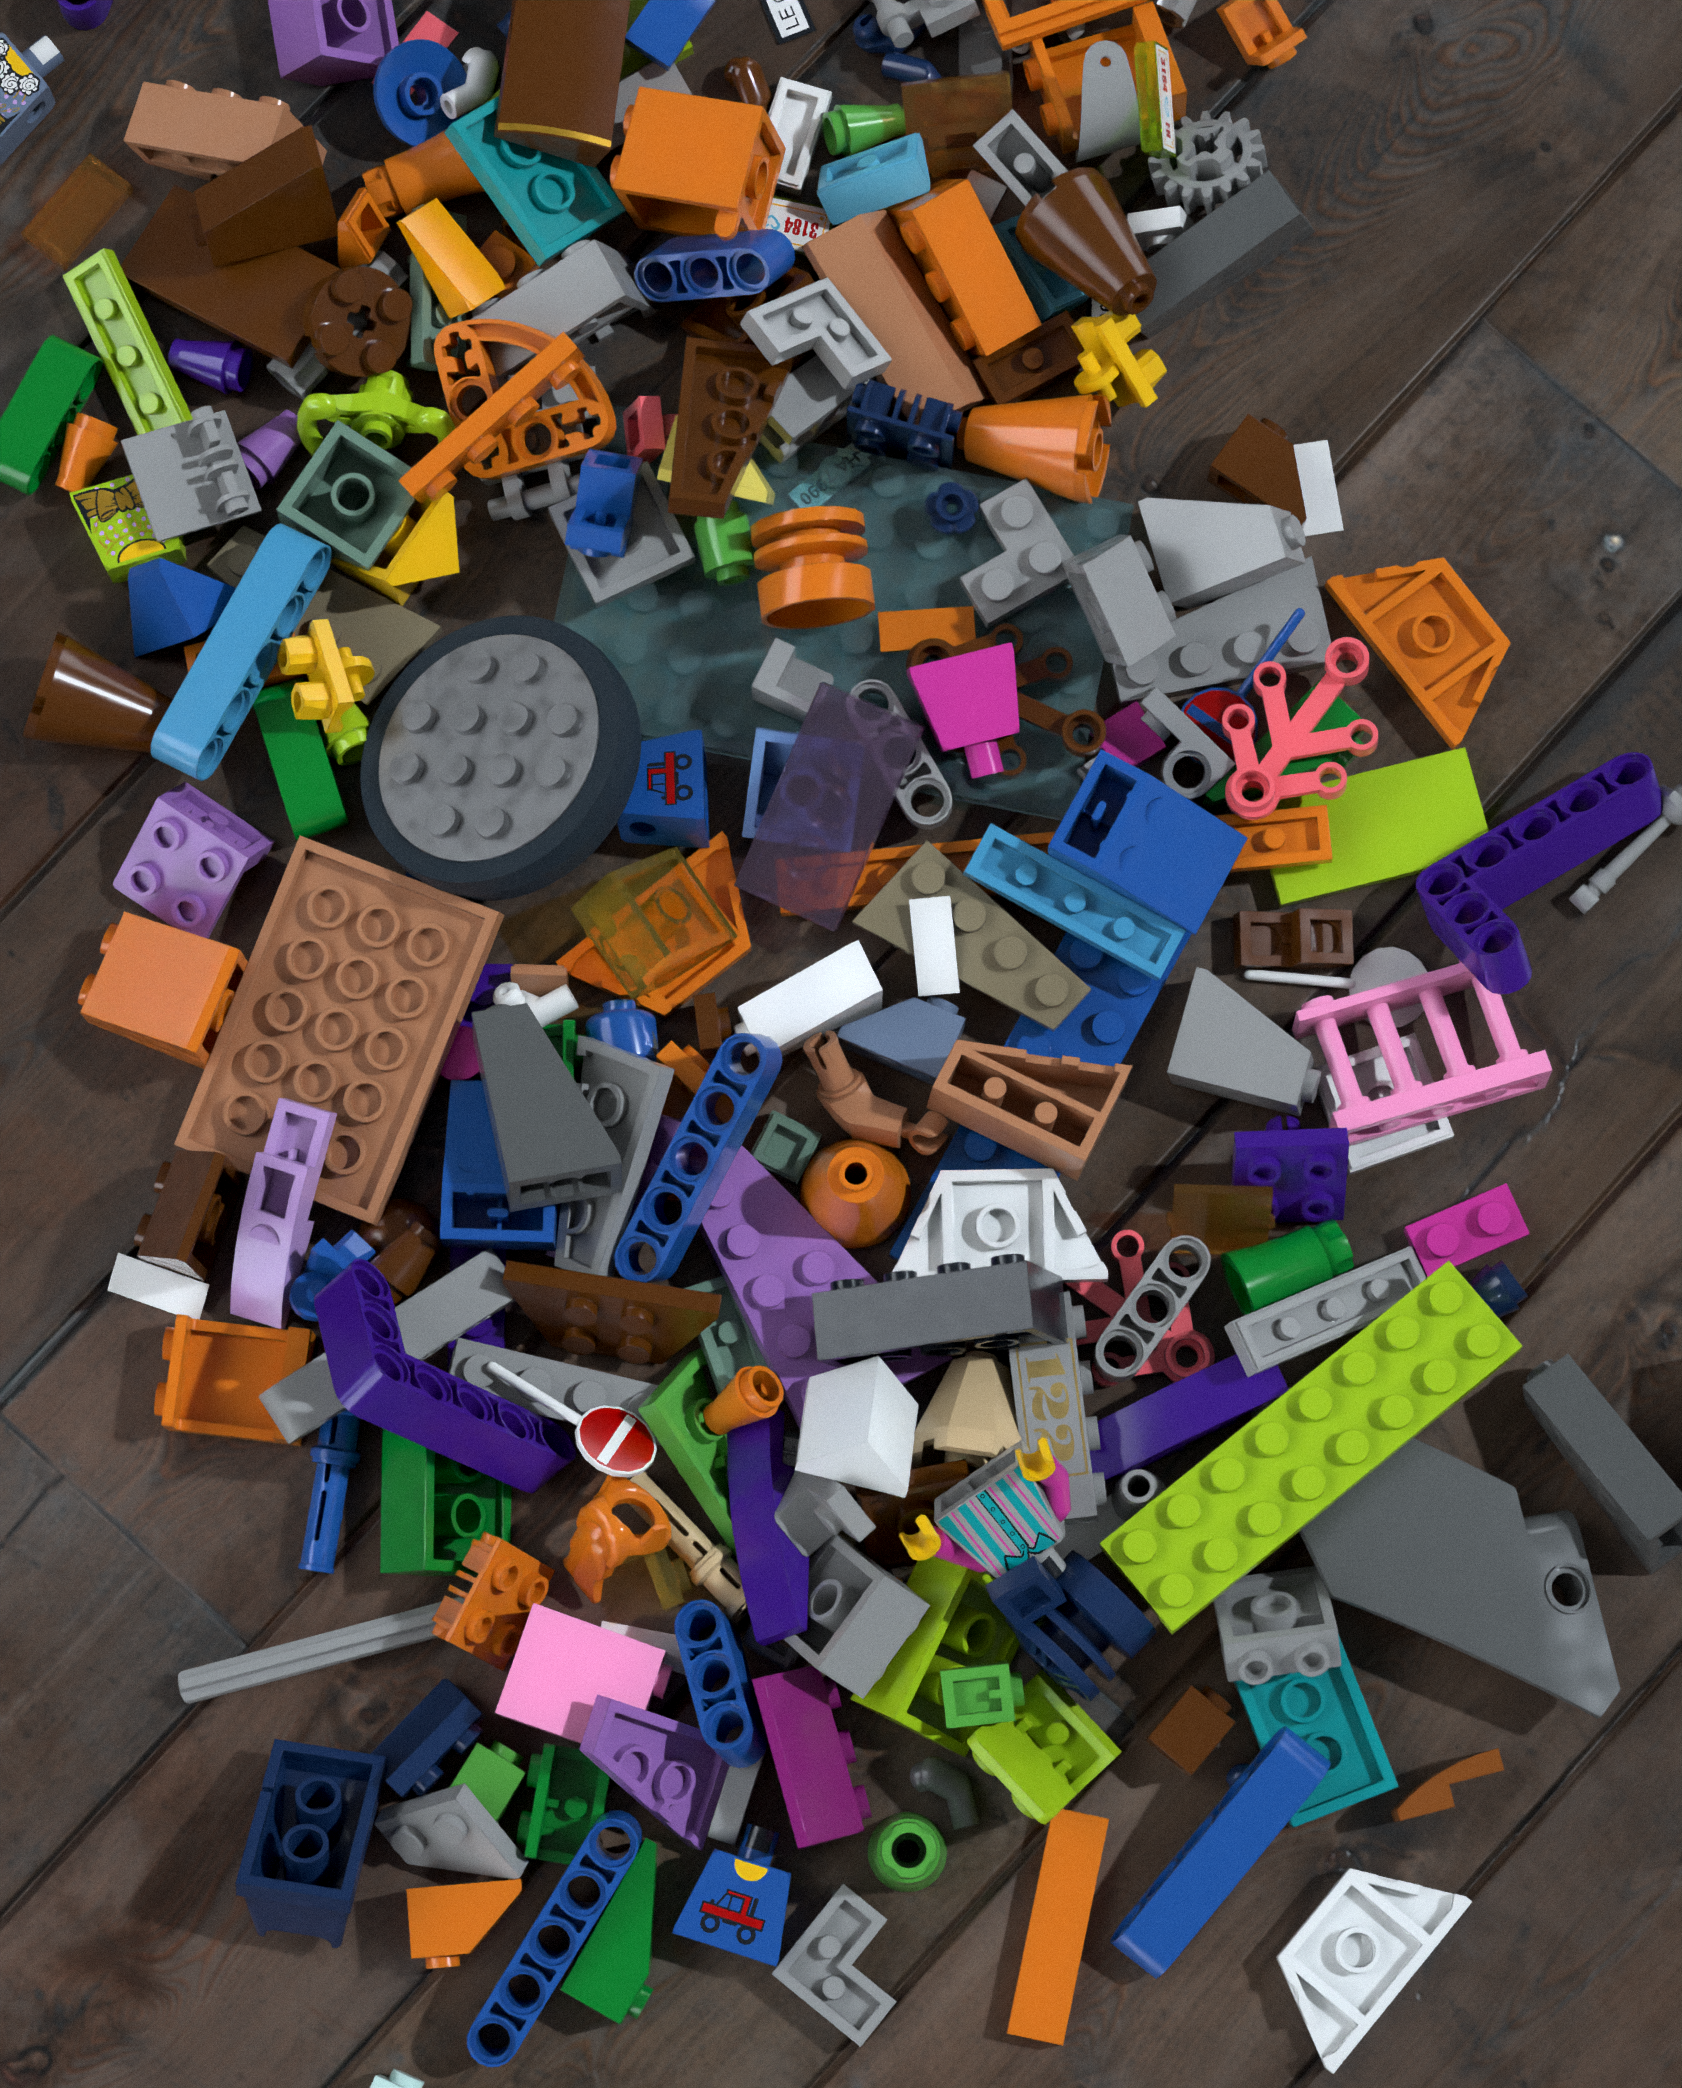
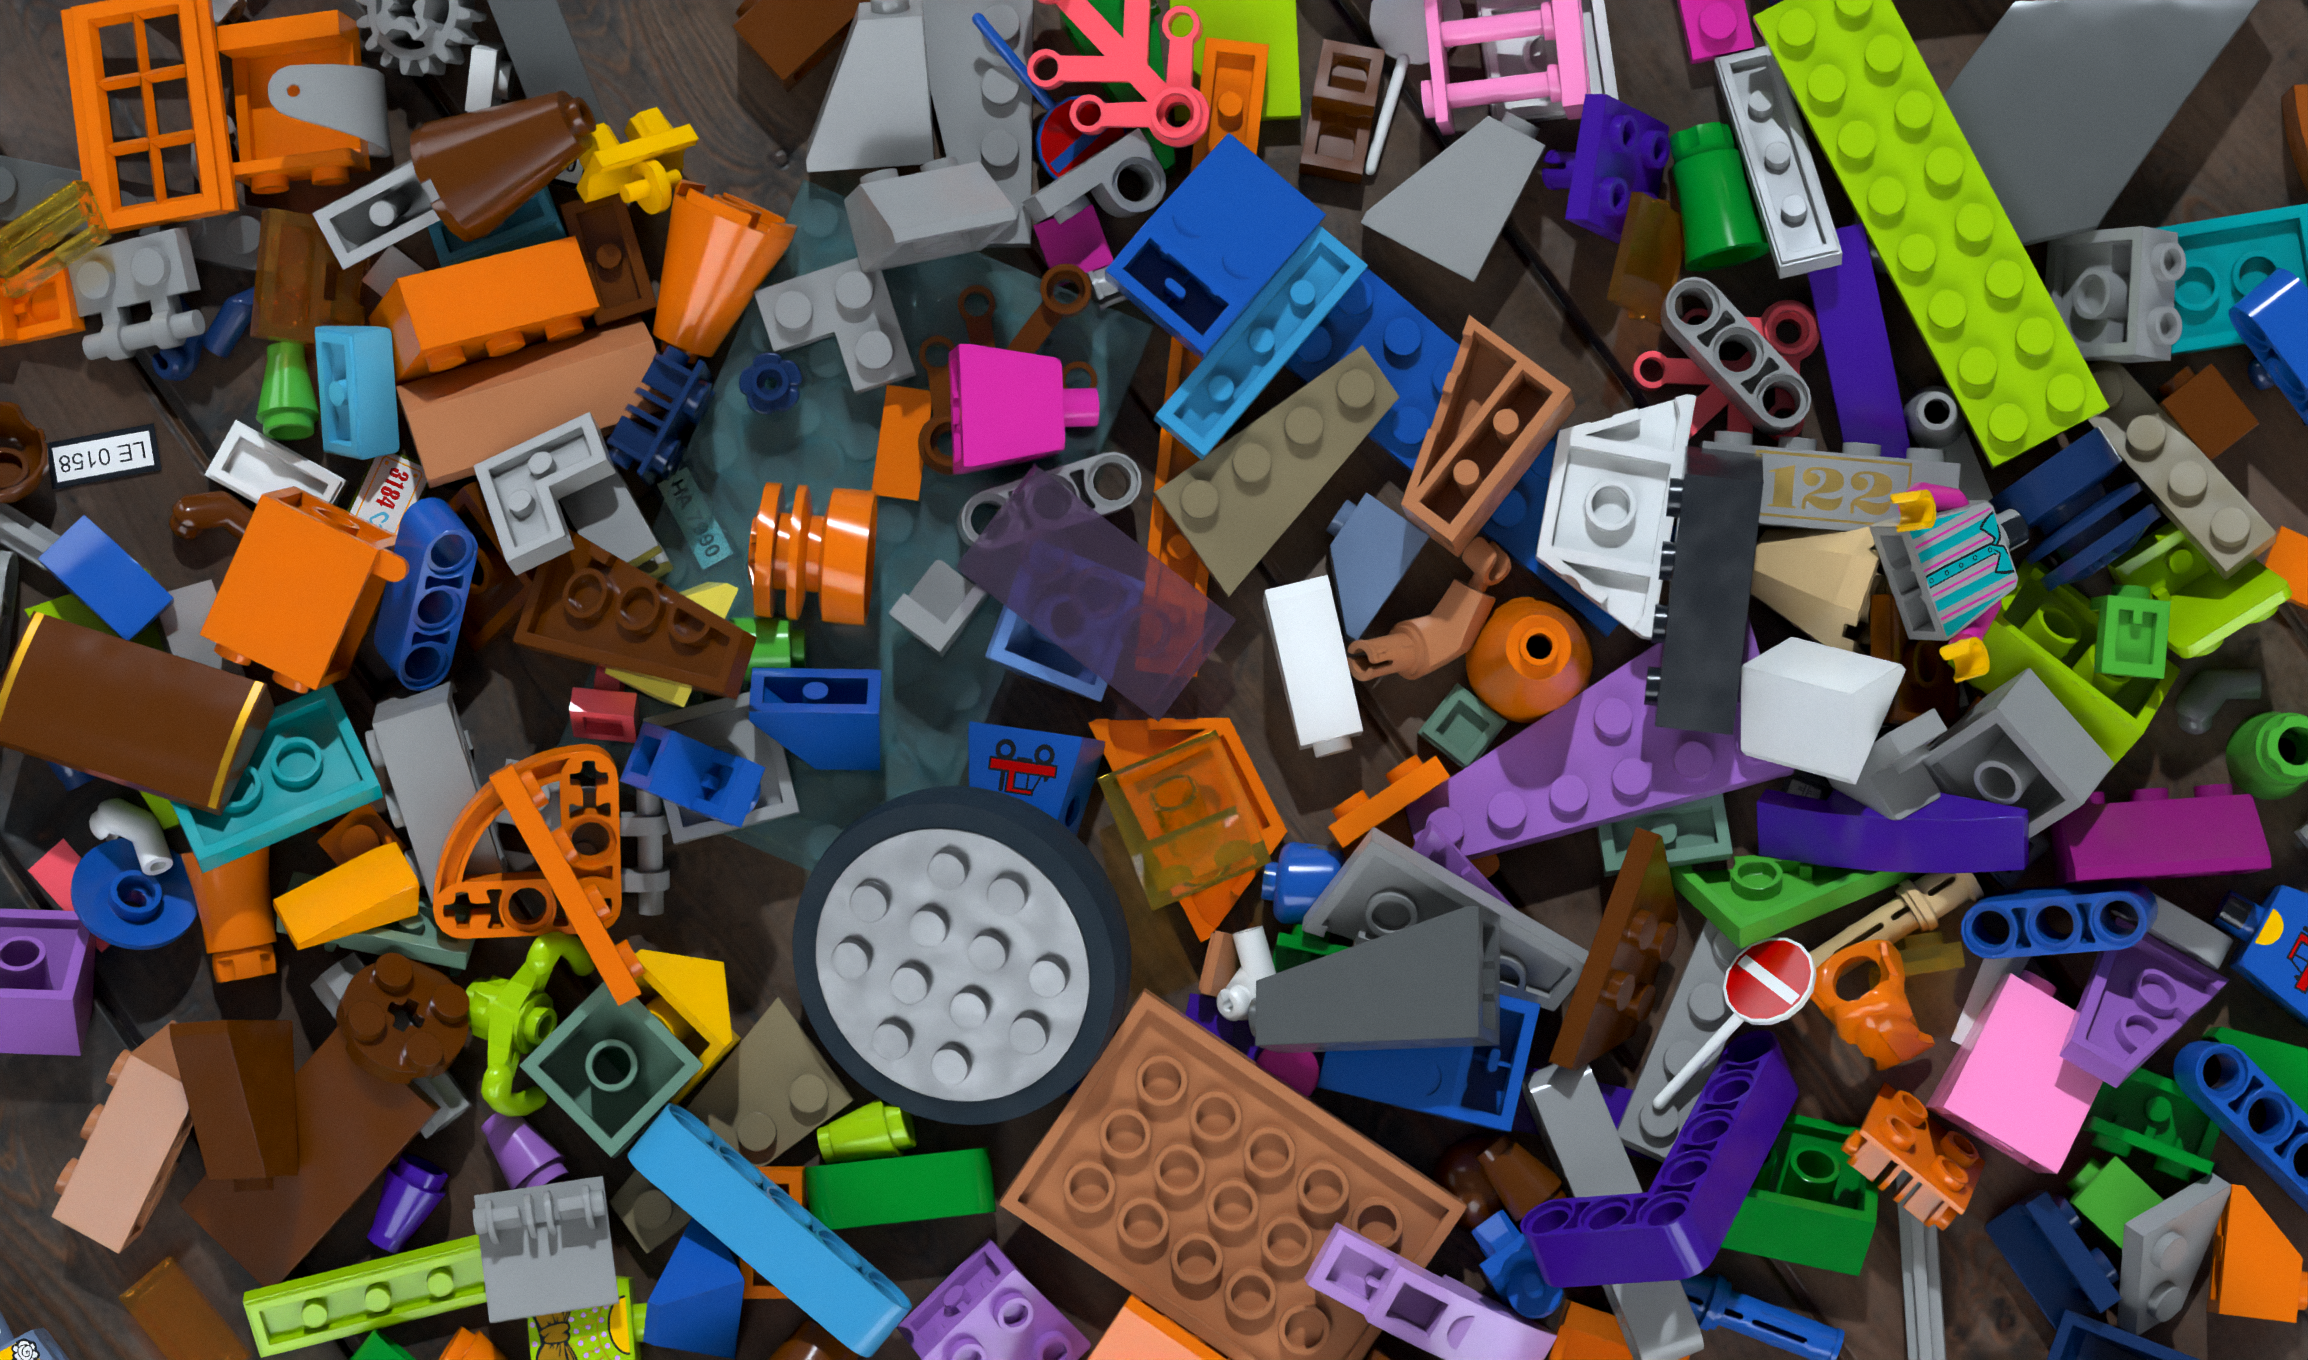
camera: 75 degrees left, 5 degrees up
(333, 675) = (818, 1131): yellow hips -> none
(360, 230) = (291, 995): orange slope -> none
(679, 602) = (821, 714): none -> blue slope
(712, 1024) = (1309, 781): reddish brown plate -> none
(721, 1144) = (1493, 846): blue beam -> none
(746, 1399) = (1750, 825): orange cone -> none
(934, 946) = (1278, 509): white sticker -> none
(1026, 1593) = (2040, 557): dark blue plate -> none
(1135, 1708) = (2178, 474): none -> dark tan plate
(1154, 99) = (345, 46): clear neon green tile -> none

